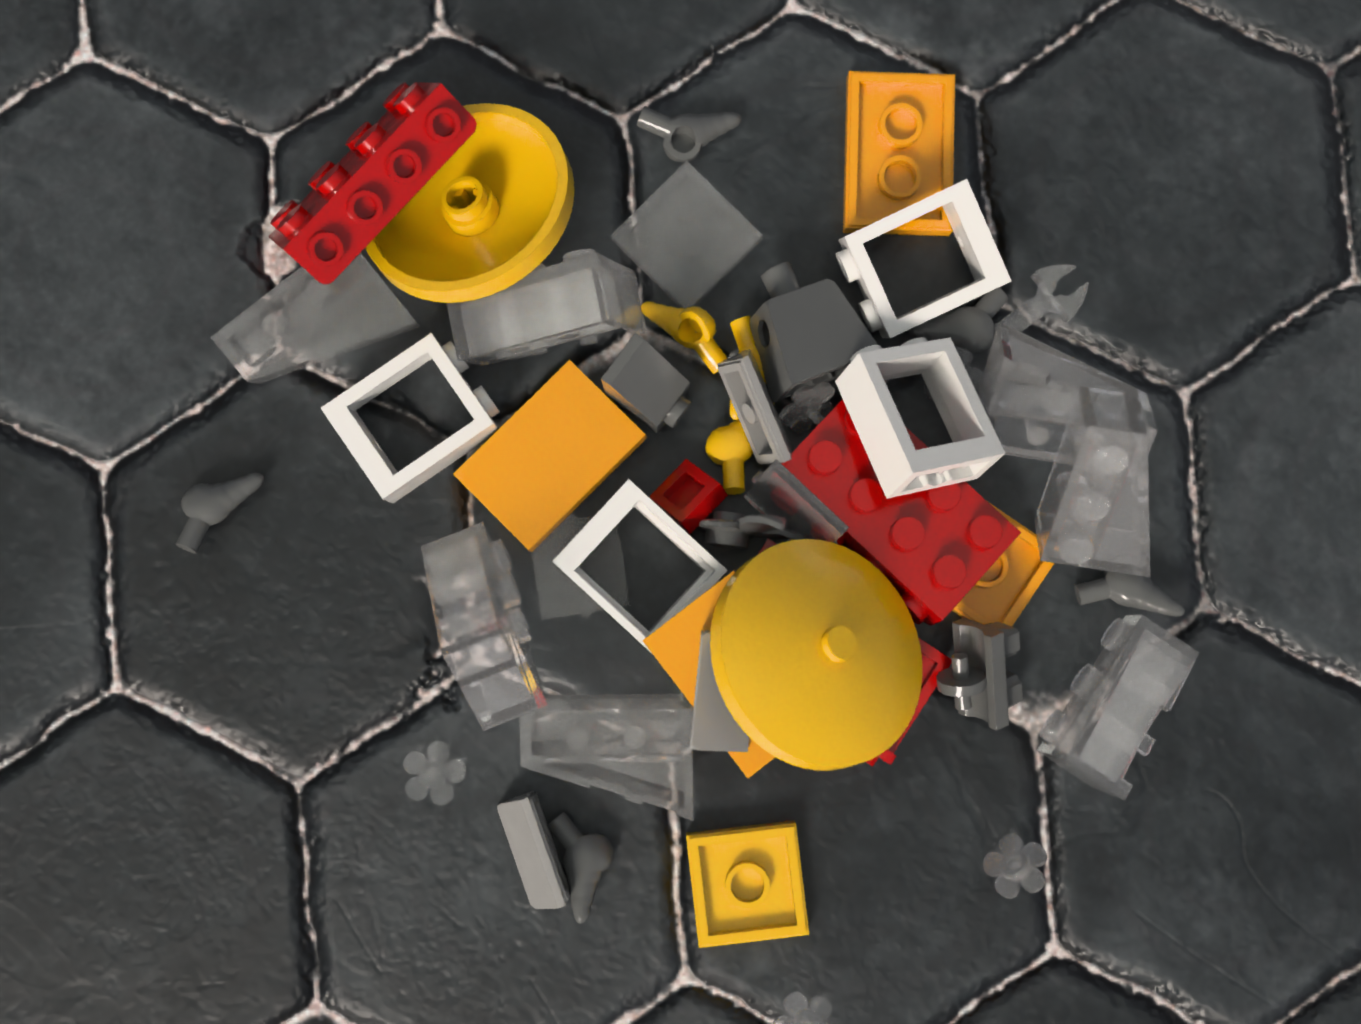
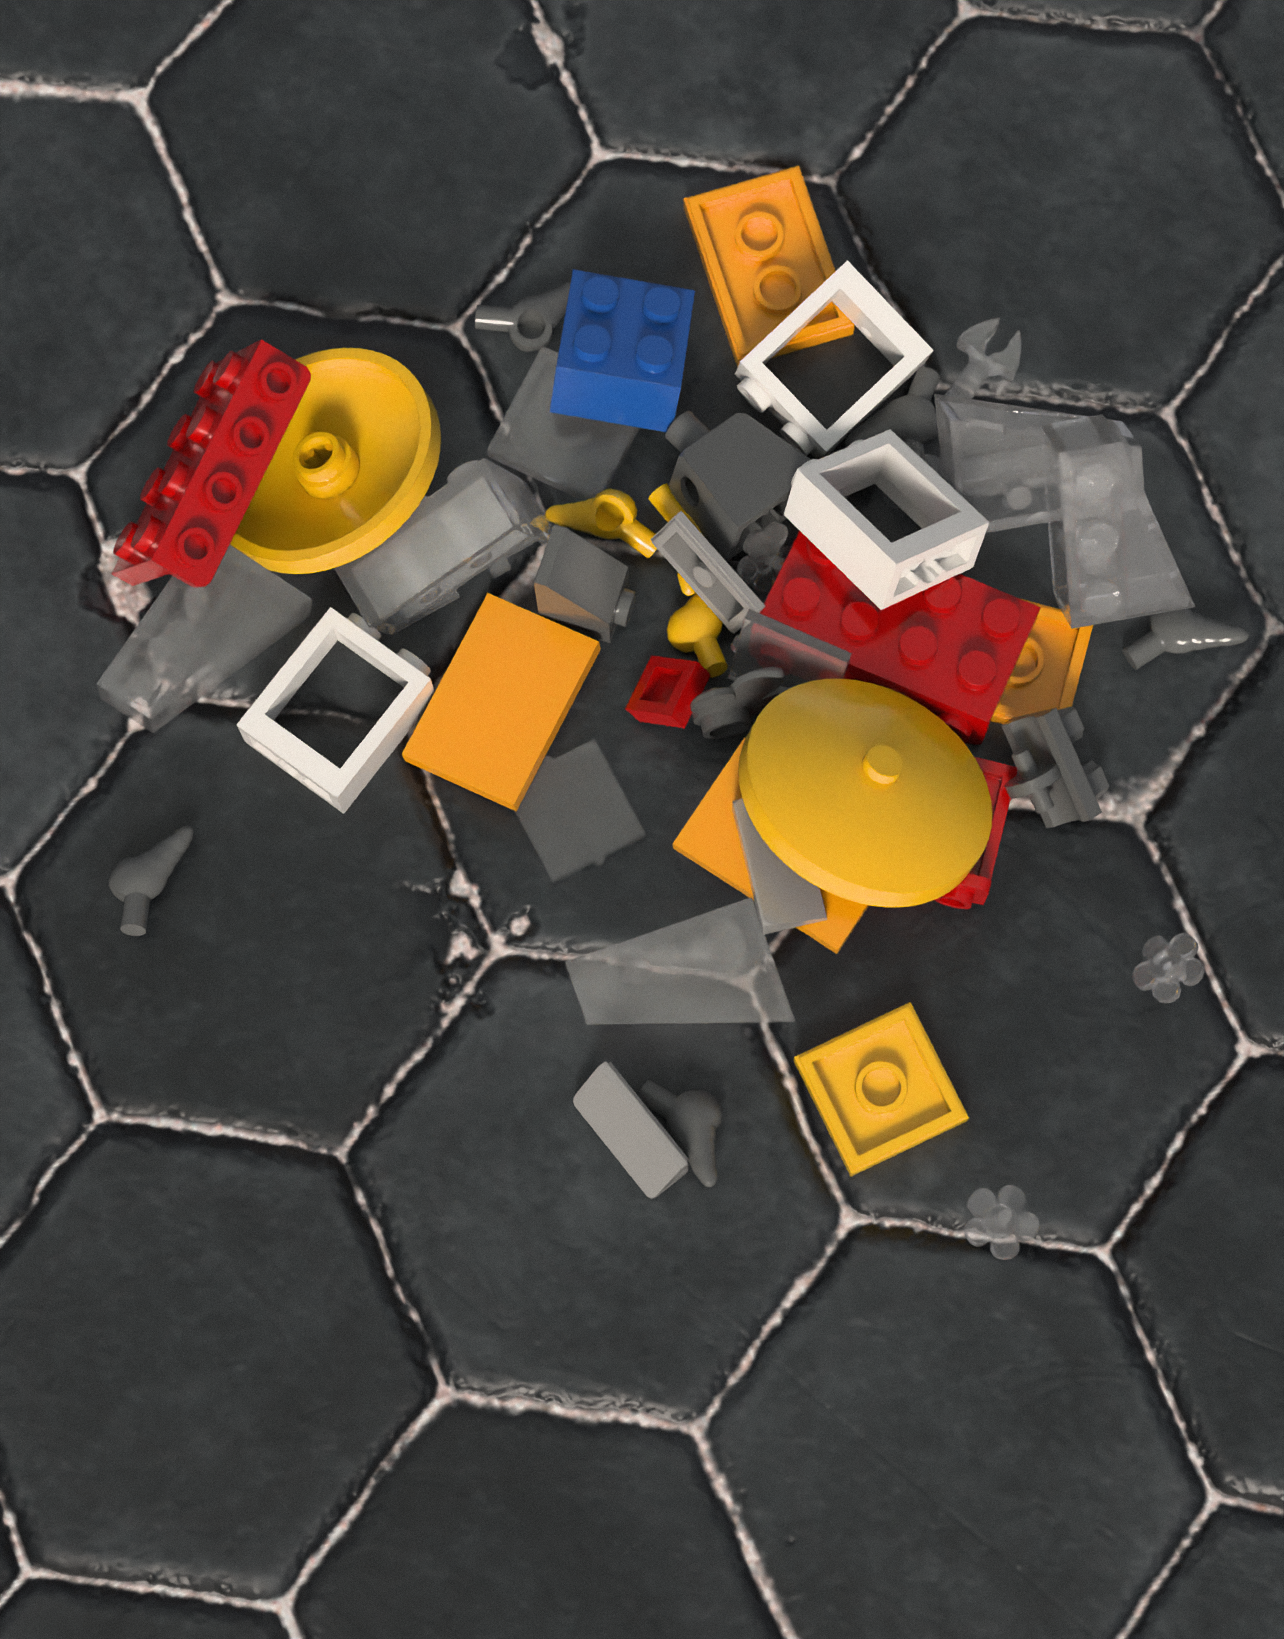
camera: 10 degrees left, 10 degrees down
(433, 773) = (489, 1087): clear plant -> none
(481, 626) = (498, 886): clear wedge -> none
(602, 524) = (615, 711): white window -> none
(749, 190) = (622, 351): none -> blue brick
(1117, 703) = (1209, 753): clear wedge -> none

